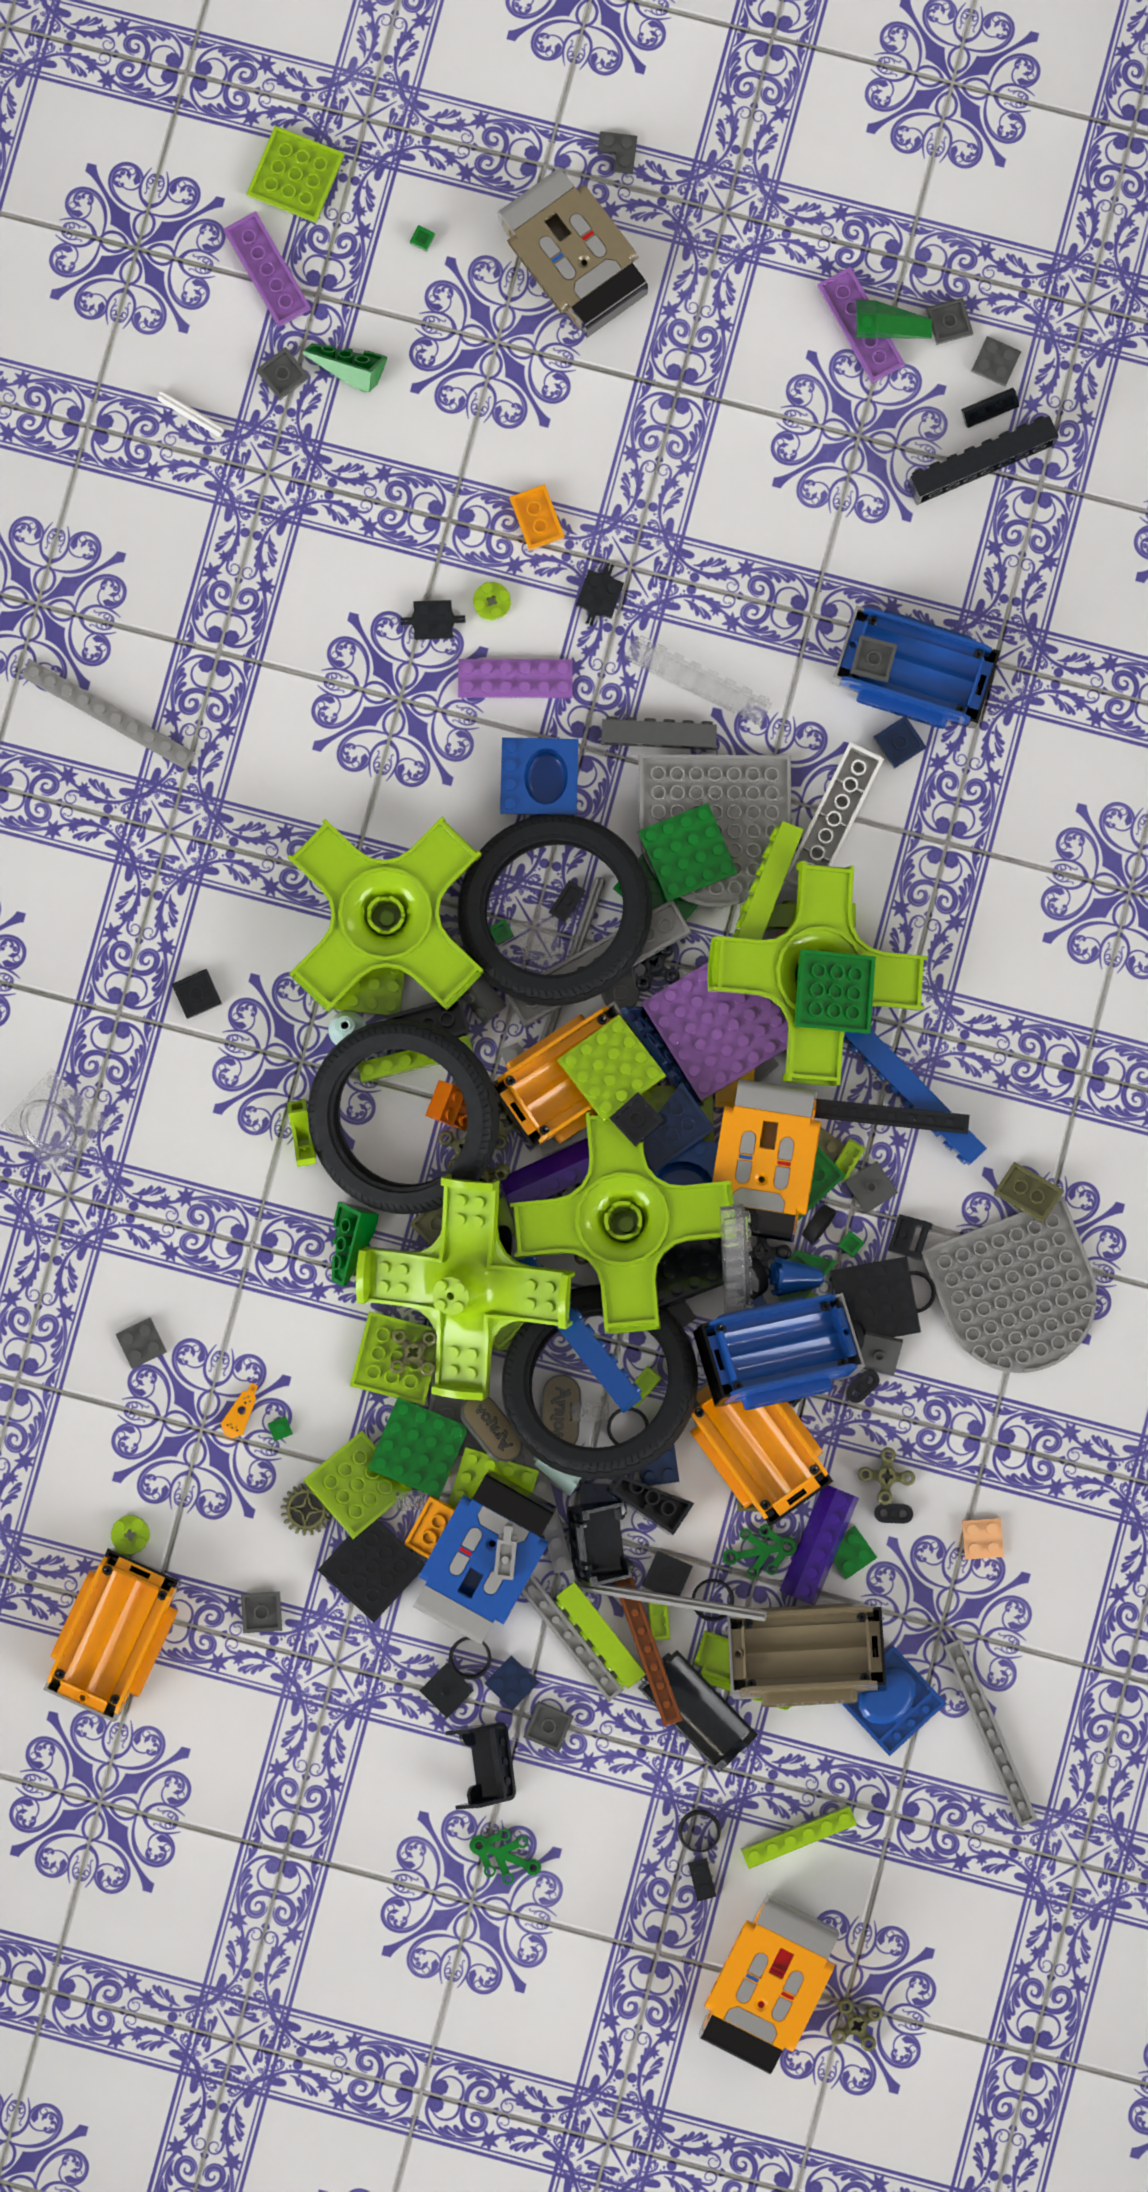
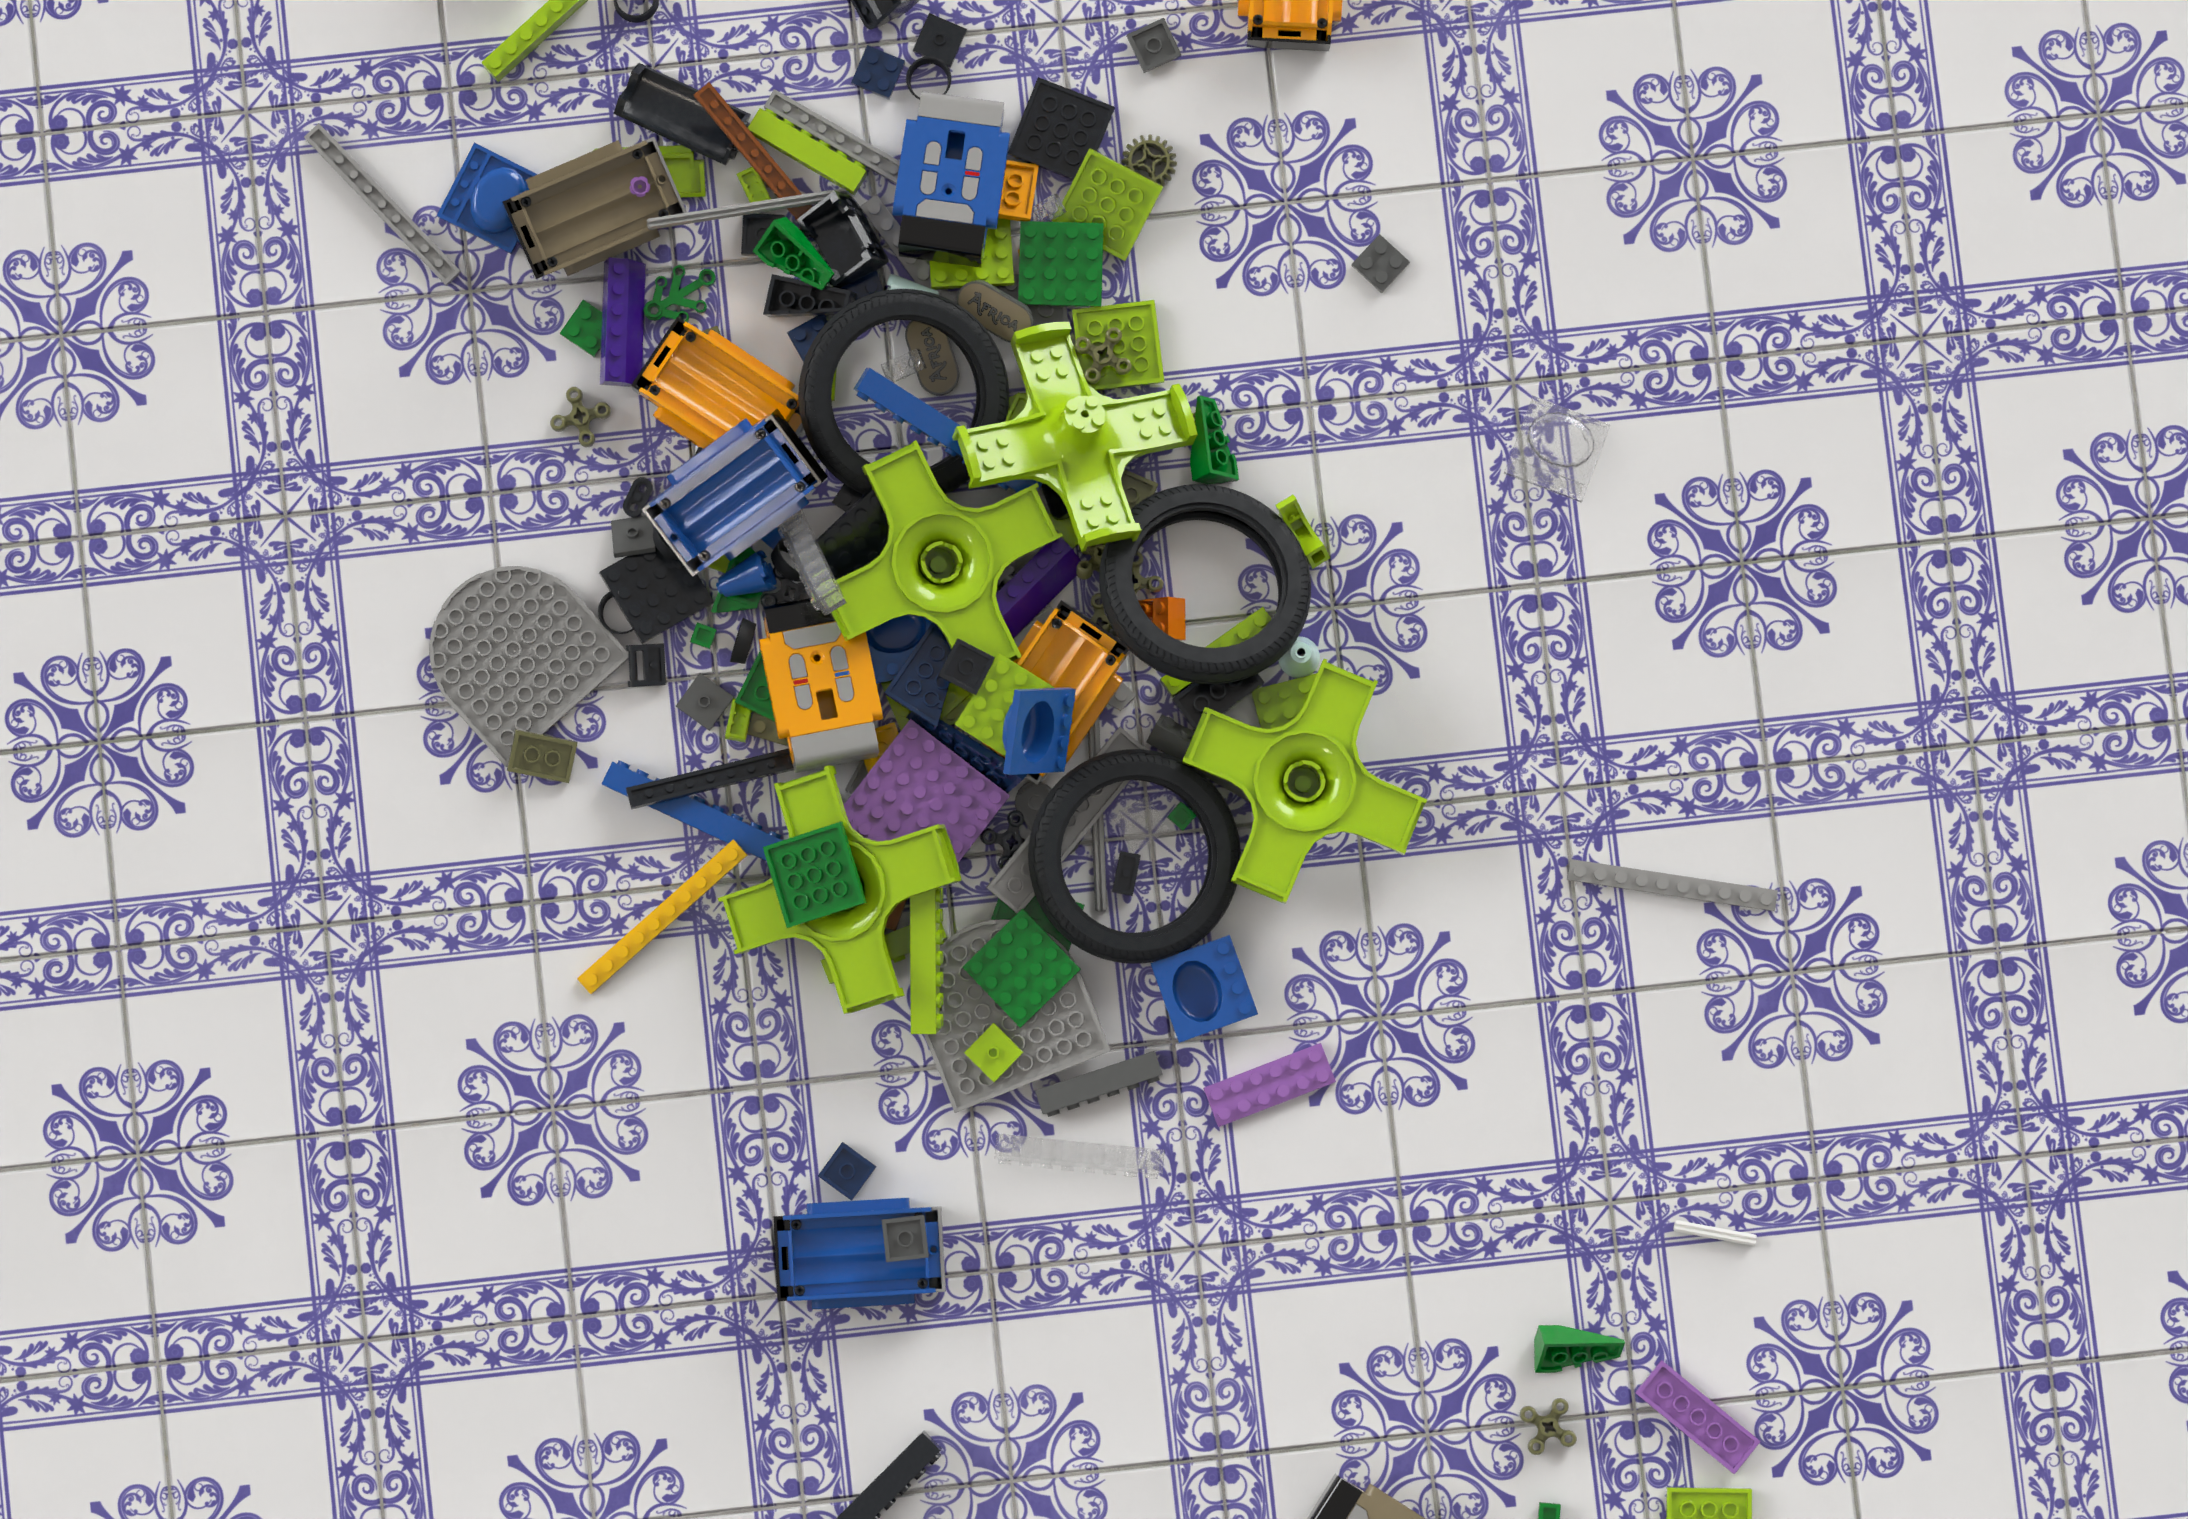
camera: 155 degrees right, 0 degrees up
(136, 1525) = (1318, 60): lime plate -> none
(196, 994) = (1466, 633): black plate -> none
(235, 1417) = (1253, 225): light orange piece -> none
(280, 1428) = (1207, 232): green plate -> none
(282, 373) = (1637, 1312): dark grey plate -> none
(388, 313) = (1553, 1416): none -> olive gear
(433, 620) = (1378, 1113): black plate -> none
(490, 590) = (1317, 1147): lime plate -> none
(506, 1554) = (930, 184): light grey hinge -> none
(537, 517) = (1313, 1262): light orange plate -> none
(548, 1726) = (825, 43): dark grey plate -> none
(597, 1037) = (1038, 730): none -> blue piece
(599, 594) = (1216, 1206): black plate -> none
(618, 1411) = (858, 345): black tyre -> none
(646, 1382) = (859, 415): lime plate -> none
(648, 1547) = (790, 251): none -> green wedge
(720, 1617) = (688, 230): black tyre -> none
(738, 791) = (993, 1052): none -> lime plate
(755, 1651) = (634, 186): none -> medium lavender plate
(836, 810) = (885, 1071): white brick -> none
(893, 1513) = (559, 381): black plate -> none
(976, 1015) = (662, 916): none -> yellow plate
(982, 1538) = (460, 393): light nougat plate -> none

